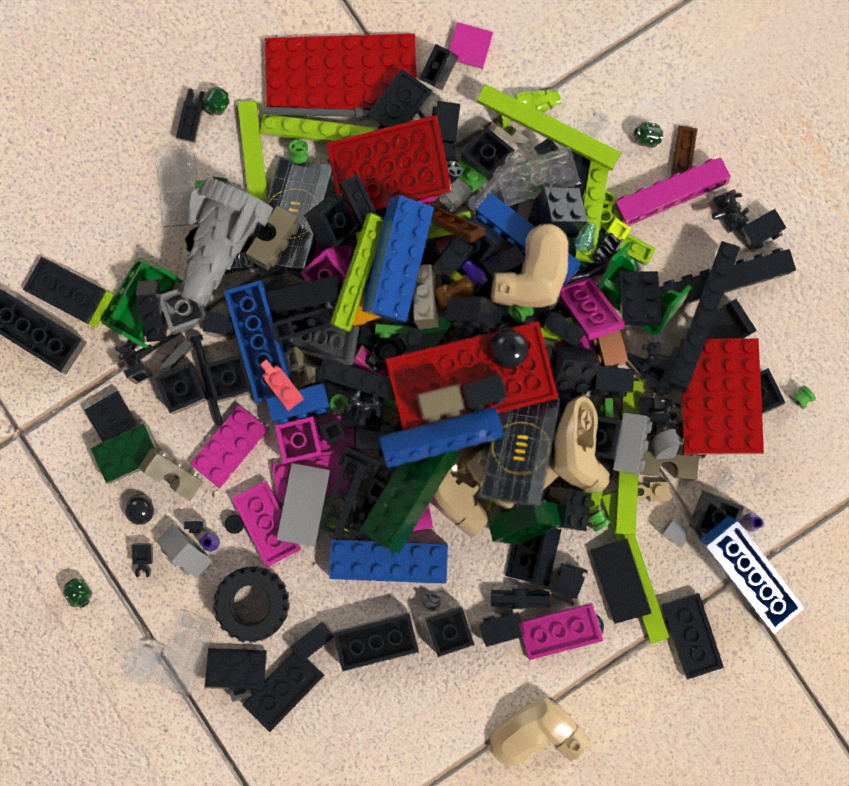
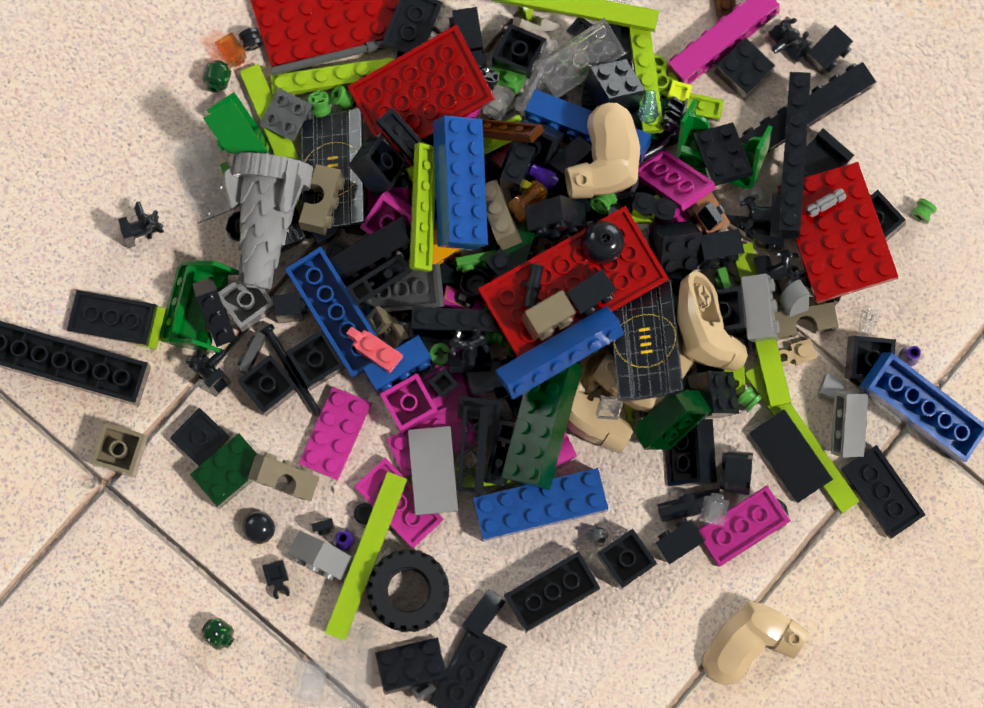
camera: 15 degrees left, 5 degrees down
(37, 408) = (119, 450): none -> dark tan brick
(106, 218) = (141, 227): none -> black piece
(190, 118) = (194, 100): black hinge -> none
(216, 153) = (235, 127): none -> green windscreen
(223, 563) = (366, 556): none -> lime tile
(235, 82) = (231, 50): none -> clear orange brick
(255, 76) = (250, 39): none -> black wheel
(267, 153) = (286, 114): none -> dark grey hinge
(319, 151) = (342, 98): none -> bright green wheel
(435, 371) = (533, 285): none -> black pin
(471, 496) = (609, 408): none -> clear tile
(539, 611) = (714, 509): none -> clear brick
(613, 351) = (711, 215): none -> black tile
(680, 569) = (849, 423): none -> light grey brick
(682, 225) = (744, 68): none -> black brick
(719, 367) = (826, 202): none -> light grey axle

